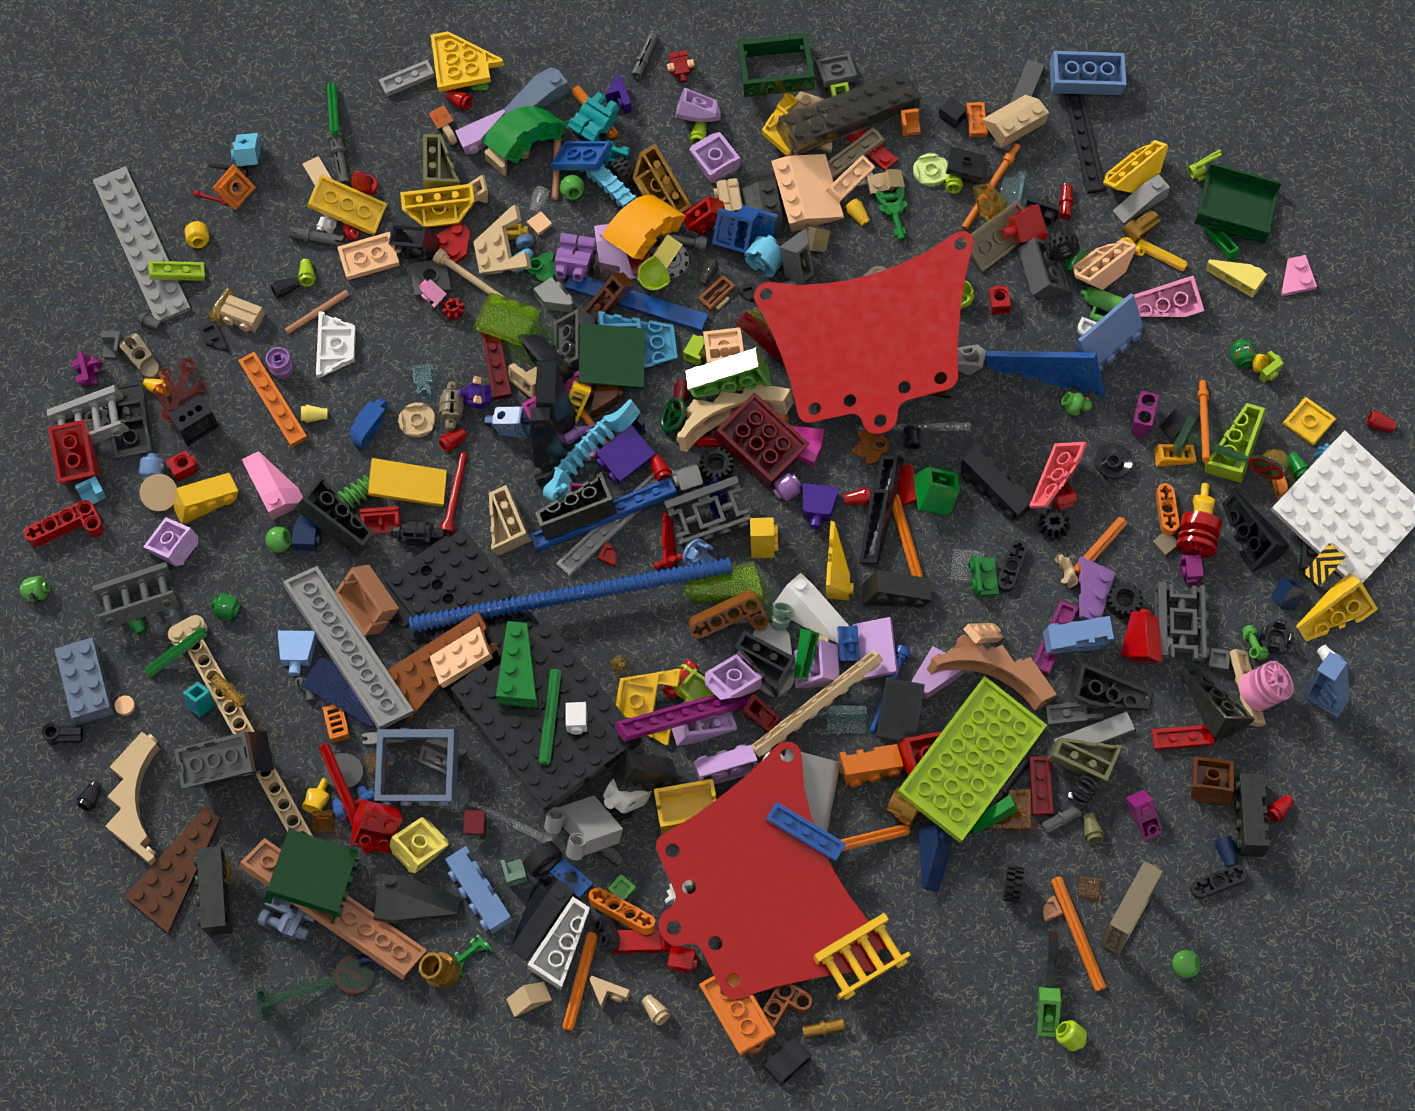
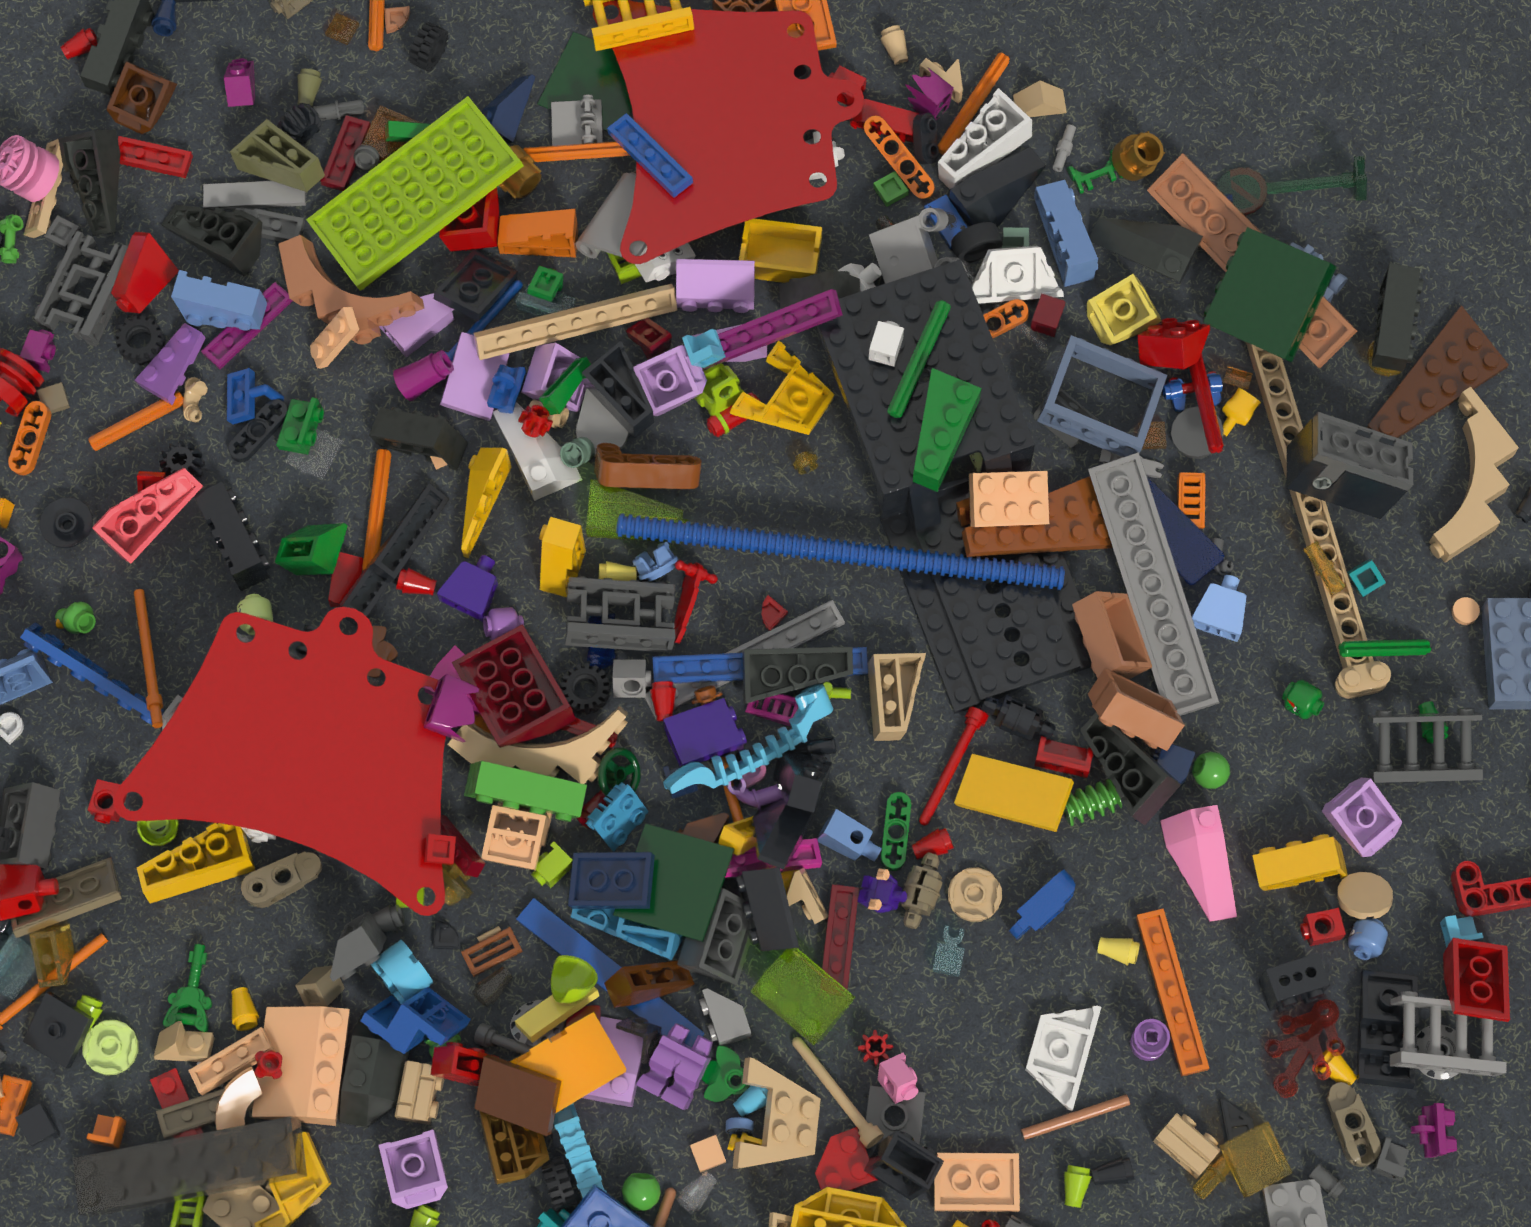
camera: 165 degrees left, 5 degrees up
(196, 317) = (1256, 1159): none -> clear yellow tile
(338, 548) = (1135, 710): none -> nougat piece
(485, 447) = (890, 811): none -> green beam
(499, 966) = (1064, 148): none -> light grey bar
(507, 839) = (1014, 275): none -> white wing
(509, 813) = (1014, 321): none -> orange beam
(607, 961) = (934, 88): none -> magenta piece
(632, 481) = (706, 695): none -> dark orange plate
(652, 344) = (611, 880): none -> dark blue plate
(663, 202) = (517, 1095): none -> reddish brown tile
(666, 387) = (619, 818): none -> dark azure hinge
(713, 699) = (704, 348): none -> medium azure panel
(724, 544) = (617, 571): none -> light yellow cone
(767, 319) = (440, 849): none -> red plate
(796, 401) = (451, 707): none -> magenta piece
(819, 617) = (535, 421): none -> red gear
(825, 173) = (271, 1057): none -> red plate
(837, 155) = (236, 1099): none -> light nougat tile
(850, 727) = (546, 283): none -> green bracket
(876, 864) = (577, 121): none -> light grey hinge
(887, 894) = (588, 72): none -> dark green piece
(913, 630) = (422, 374): none -> magenta plant
(957, 440) = (255, 606): none -> yellowish green head
(994, 357) = (154, 699): none -> orange bar
(1022, 782) = (366, 157): none -> dark grey plate
(1033, 582) = (242, 395): none -> blue plate

